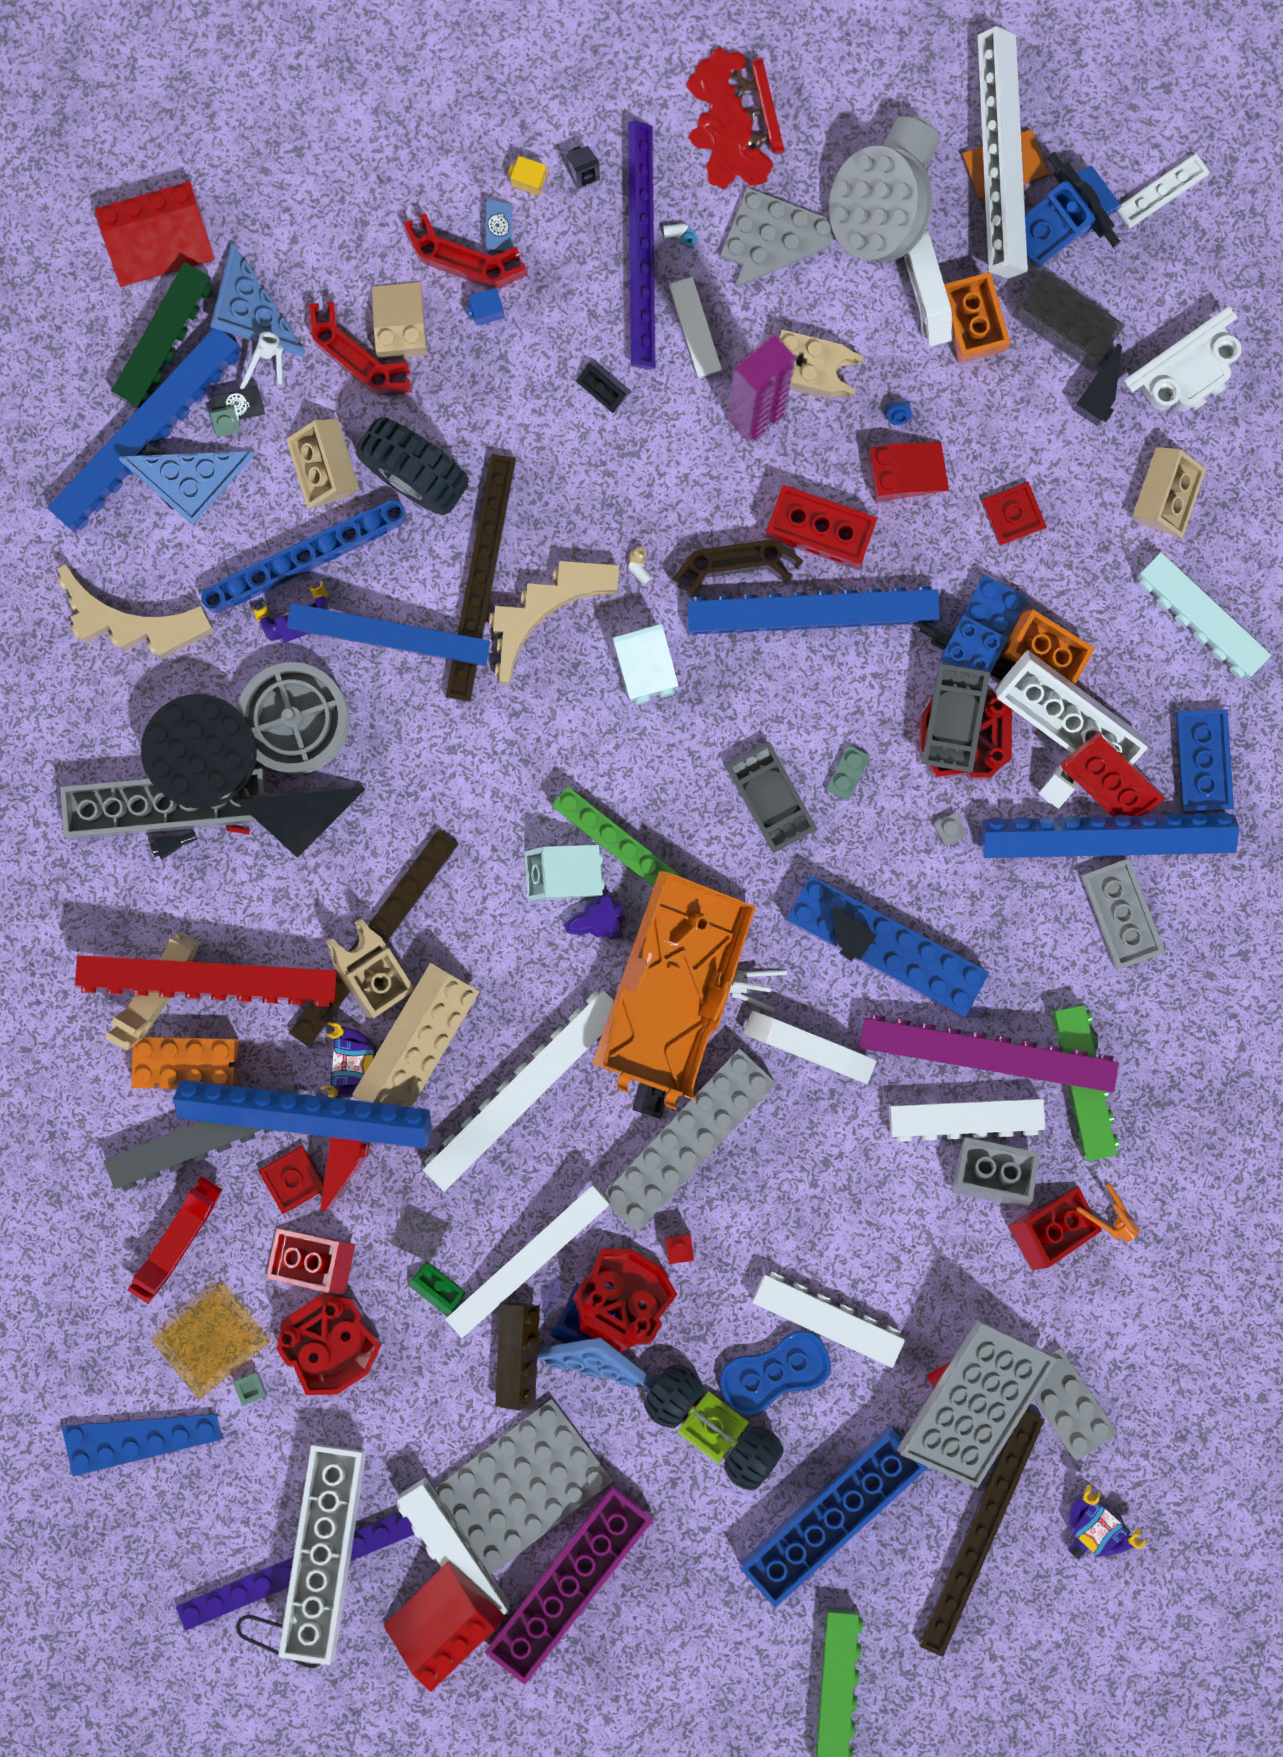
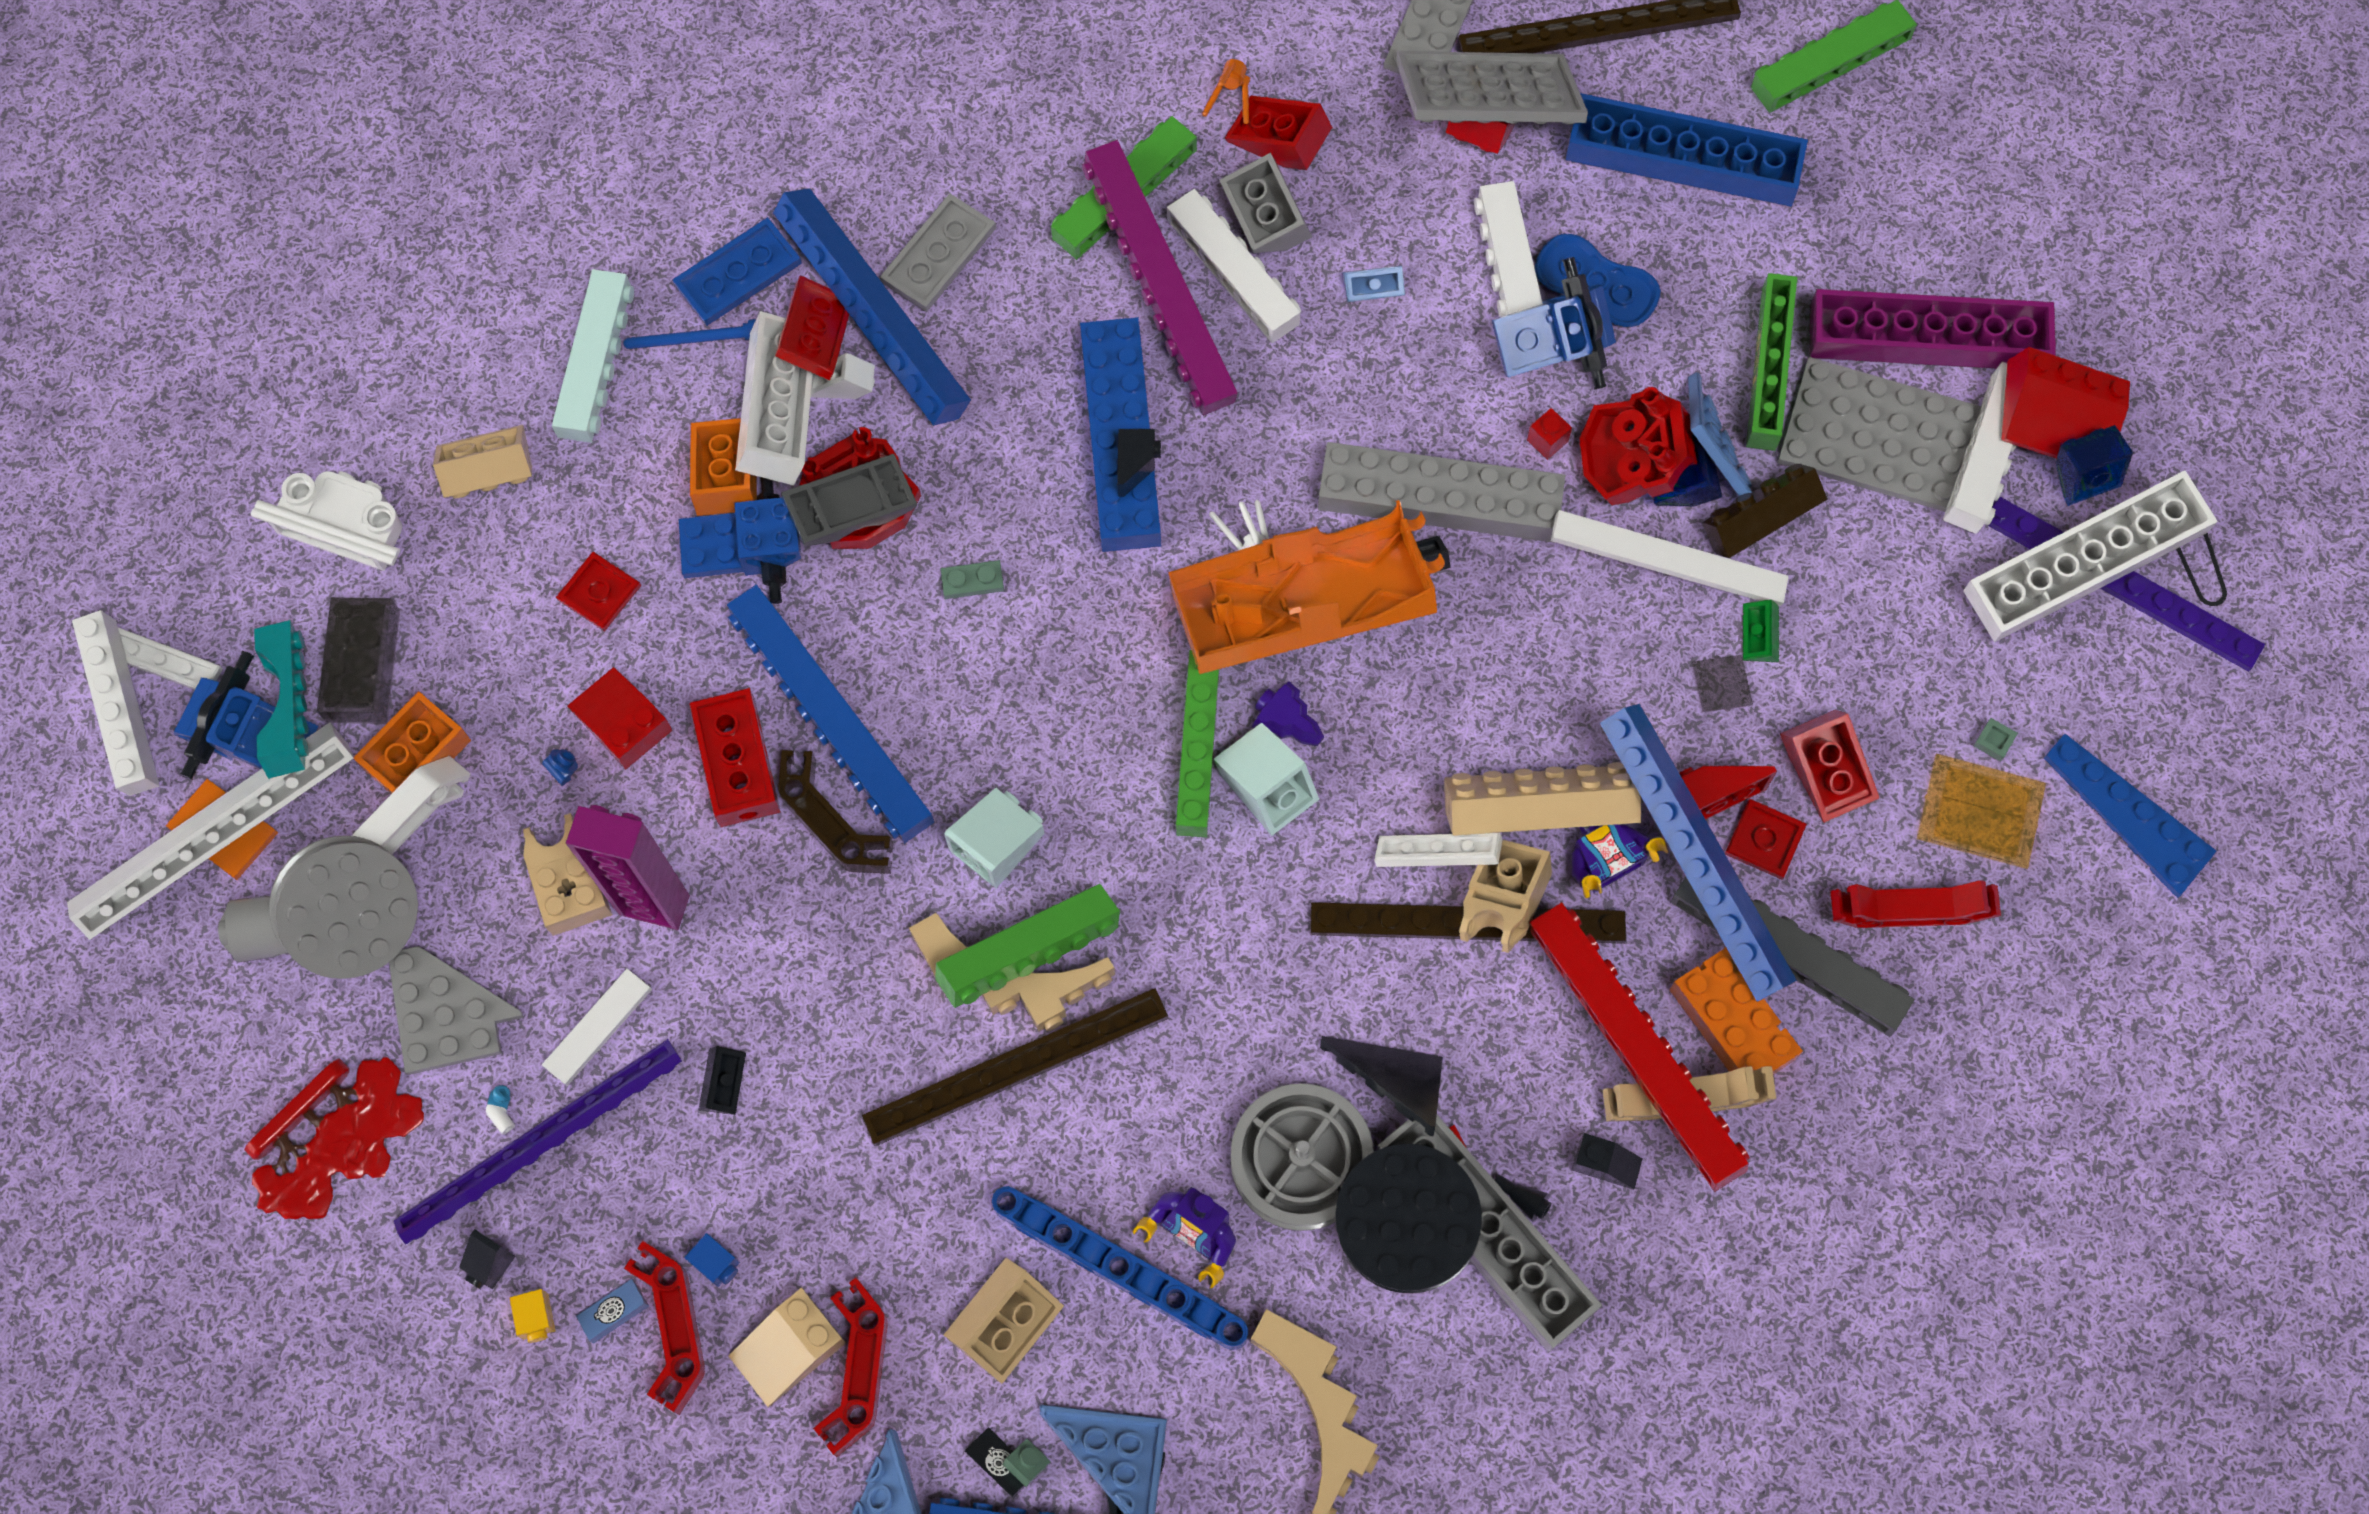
camera: 125 degrees left, 15 degrees down
(155, 912) = (1607, 1161): none -> black slope
(266, 348) = (911, 1463): white plant -> none
(339, 1360) = (1901, 670): red brick -> none
(387, 634) = (1146, 1108): blue tile -> none
(390, 1614) = (2092, 464): none -> clear blue slope
(412, 466) = (944, 1200): black wheel -> none
(431, 949) = (1438, 850): none -> white tile
(520, 1093) = (1506, 673): white brick -> none
(550, 633) = (1027, 946): none -> bright green brick
(624, 1448) = (1771, 362): none -> bright green brick
(636, 565) = (896, 919): arm -> none
(713, 1427) = (1690, 296): black plate -> none
(745, 1317) = (1558, 330): none -> piece
(770, 797) = (1048, 632): dark grey slope -> none
(809, 1047) = (1271, 440): white piece -> none
(886, 1212) = (1374, 283): none -> medium blue slope
(950, 829) = (962, 452): light grey plate -> none
(1025, 225) = (282, 740): none -> teal arch
(1101, 393) = (416, 584): black slope -> none
(1144, 141) = (115, 703): none -> white brick
(1151, 735) = (690, 337): none -> blue piece

